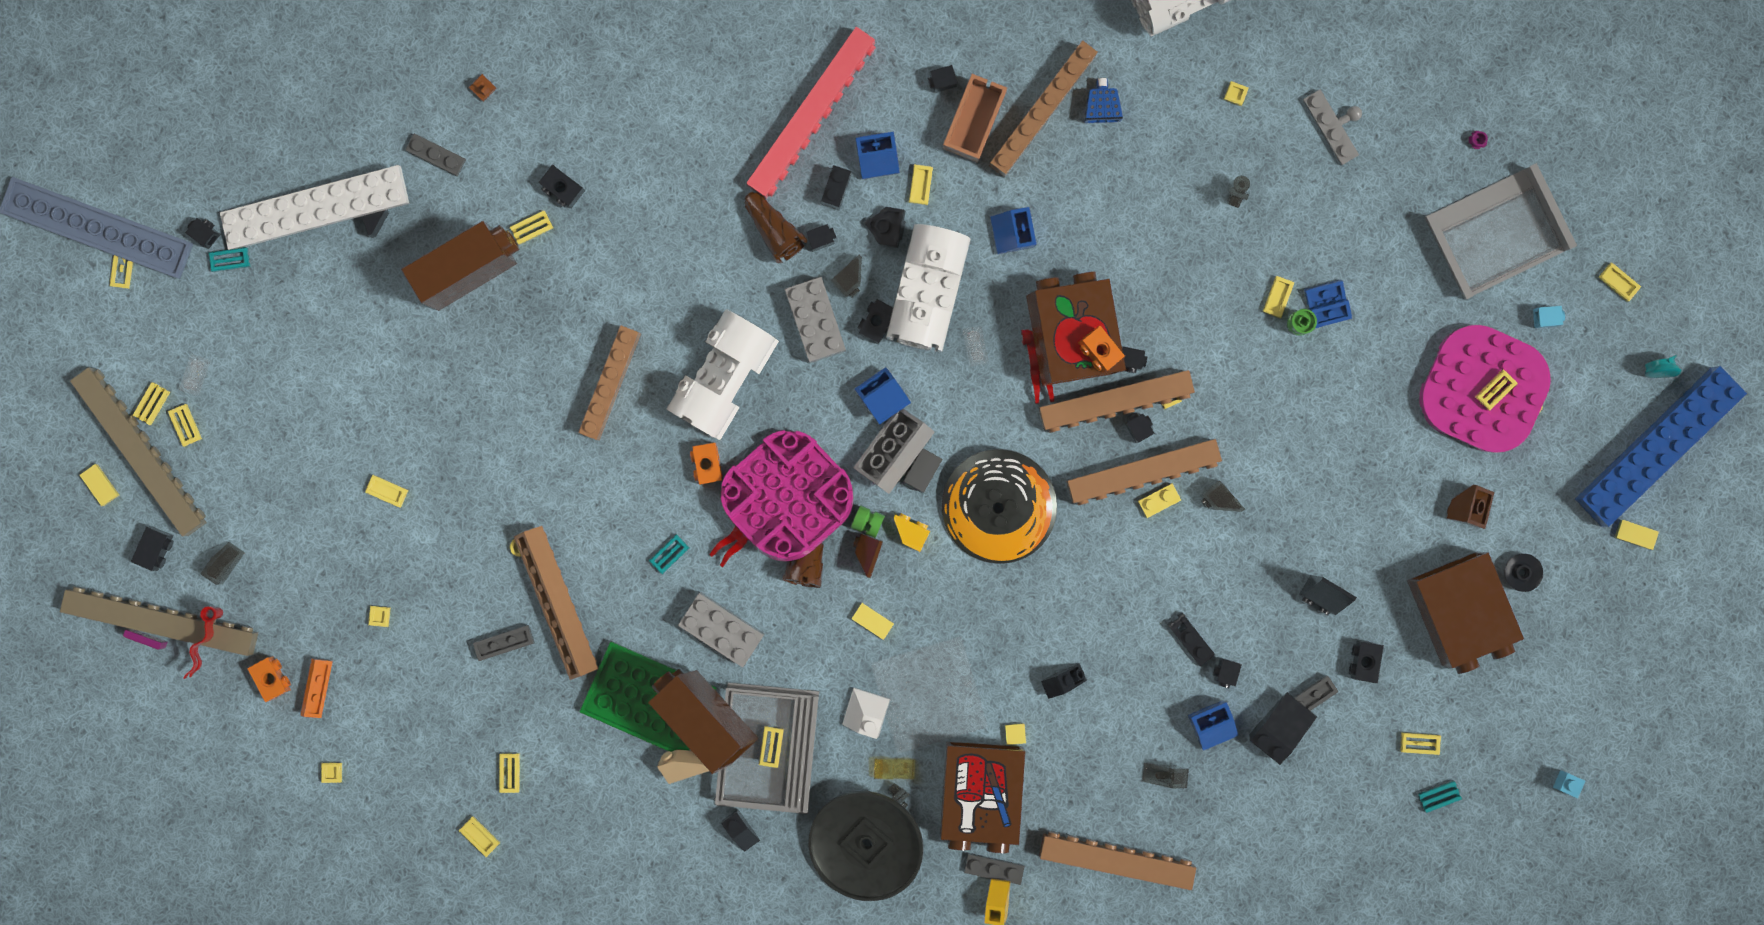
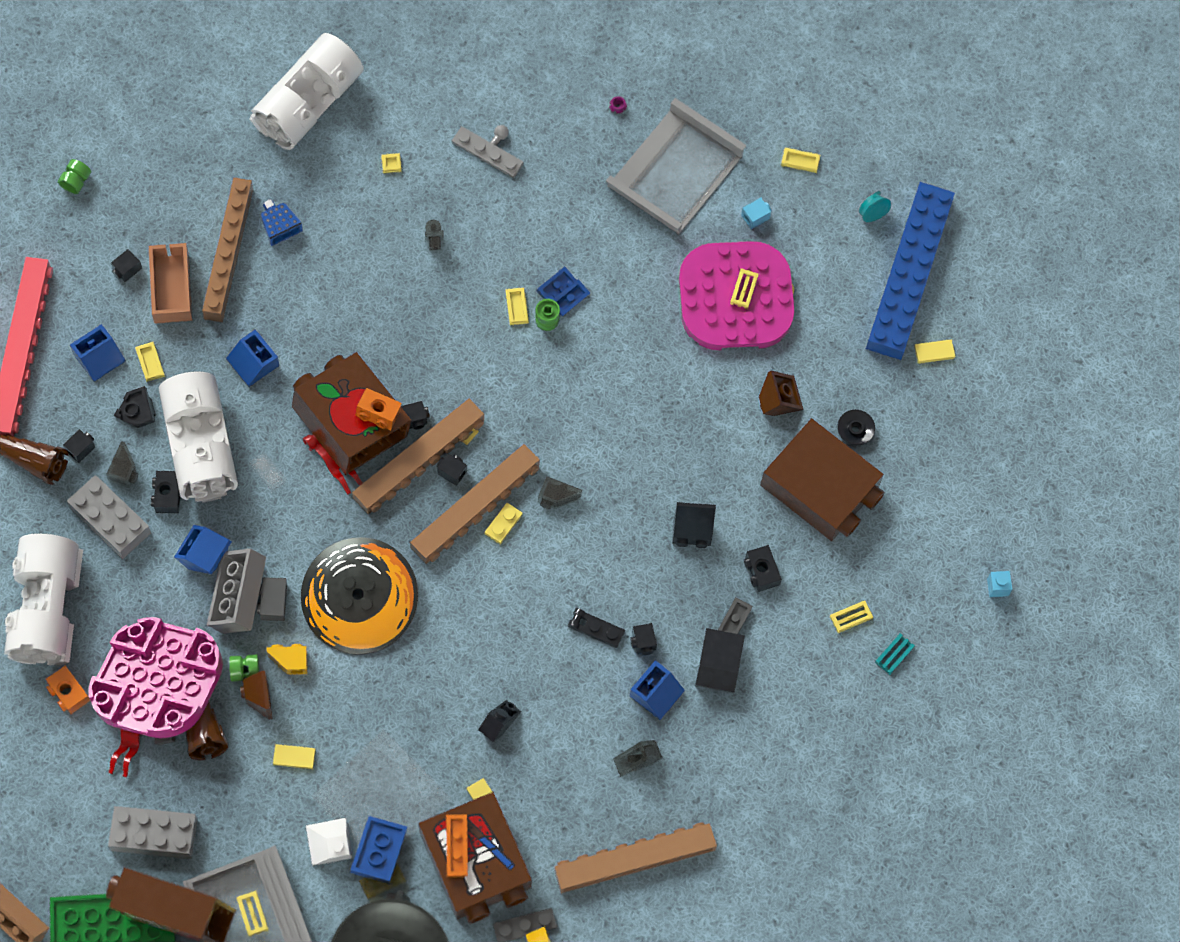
camera: 30 degrees left, 20 degrees down
(657, 565) = (70, 809): teal tile -> none
(836, 187) = (73, 397): black brick -> none
(904, 744) = (378, 849): none -> blue plate
(970, 785) = (456, 845): none -> orange plate

